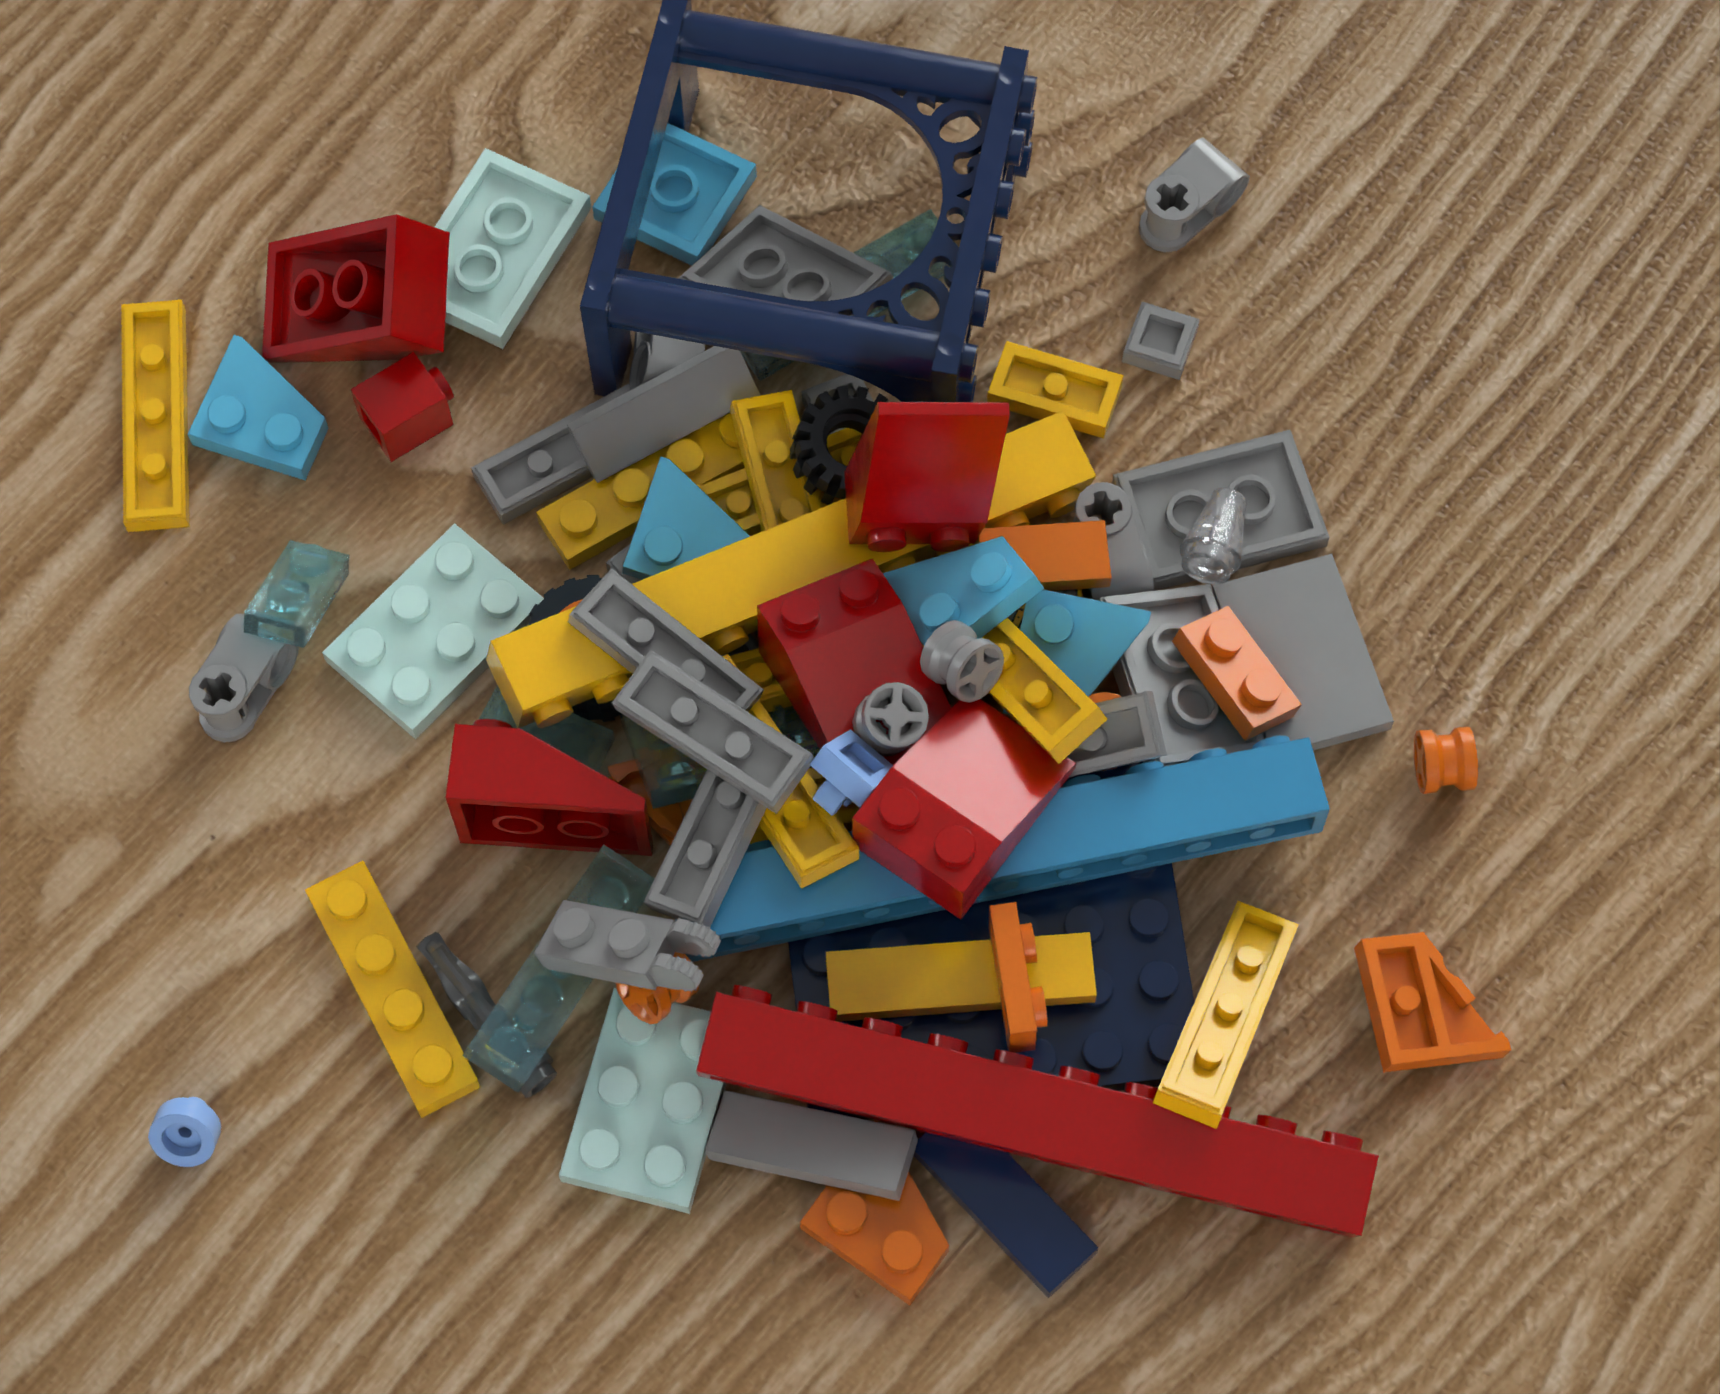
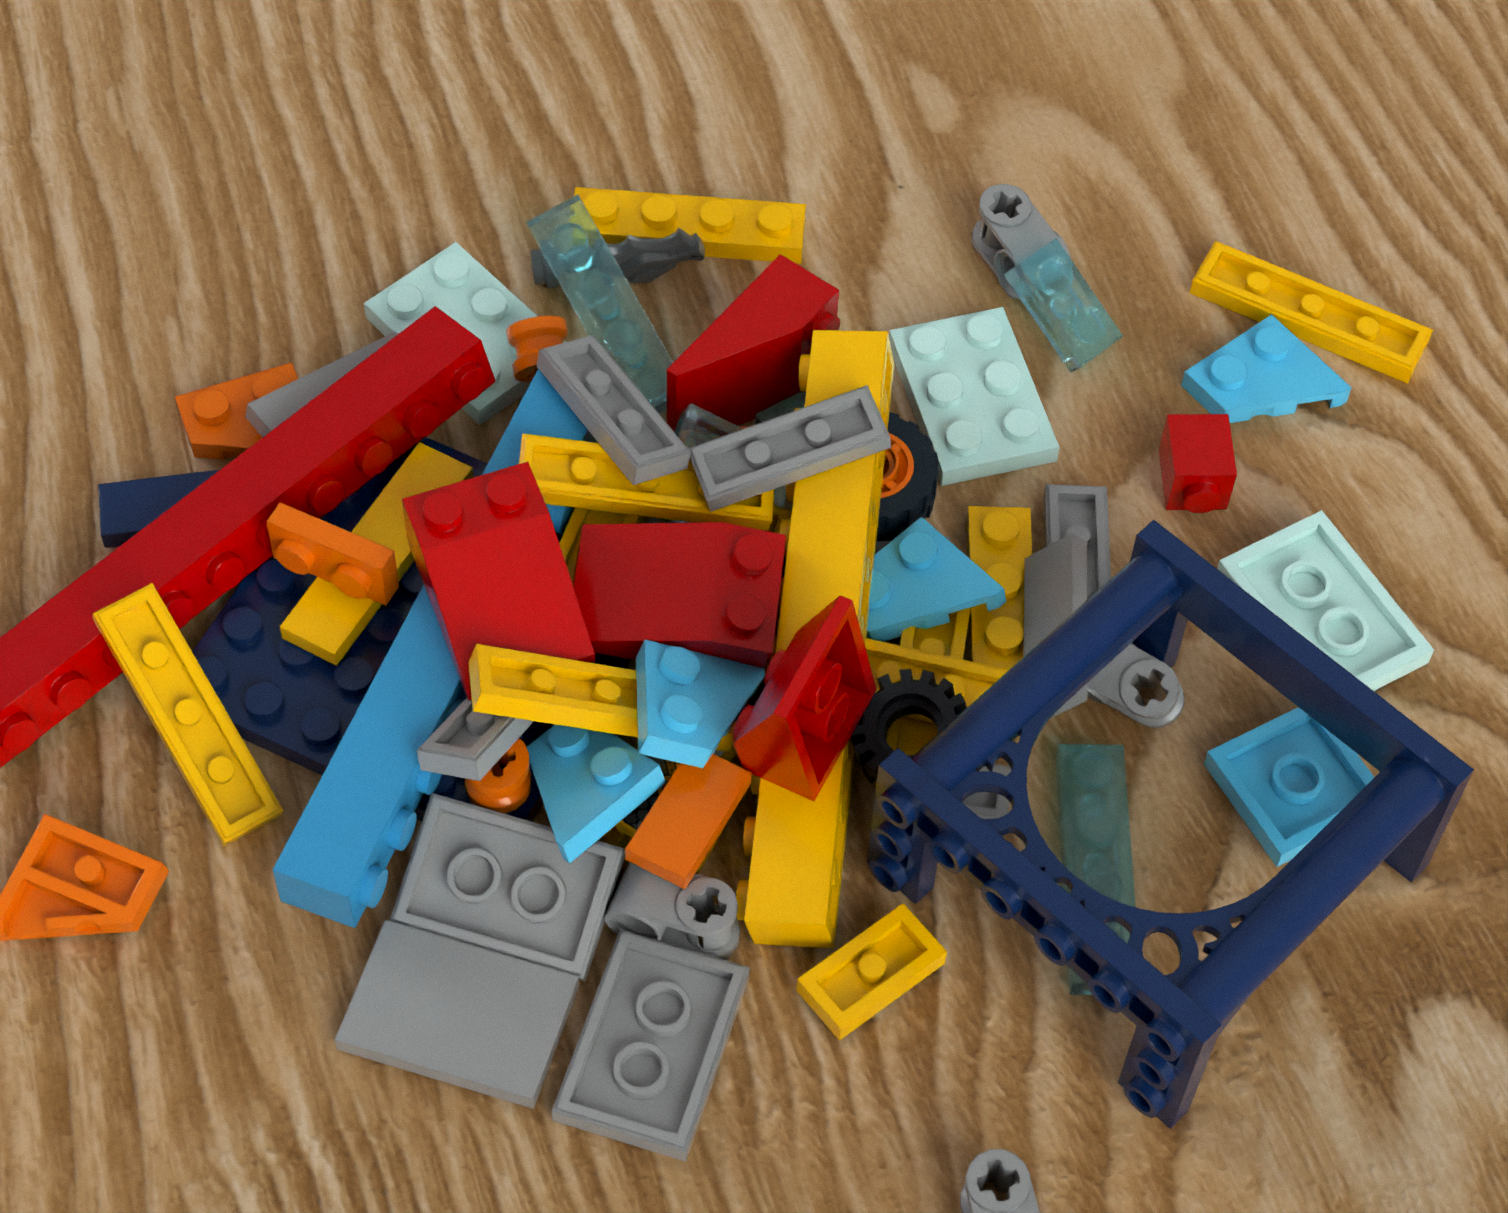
camera: 120 degrees right, 10 degrees down
(184, 1131) = (672, 56): light blue tile -> none
(357, 293) = (1319, 470): red slope -> none
(625, 946) = (571, 311): light grey hinge -> none
(713, 731) = (684, 422): light grey tile -> none
(785, 261) = (1129, 800): light grey tile -> none
(850, 772) = (580, 507): light blue tile -> none
(900, 710) = (599, 547): light grey wheel -> none
(962, 661) = (614, 641): light grey wheel -> none
(1160, 340) = (865, 1108): light grey tile -> none
(1216, 538) = (612, 989): clear cone -> none
(1236, 673) = (472, 922): orange plate -> none
(1445, 760) = (263, 1052): orange wheel -> none

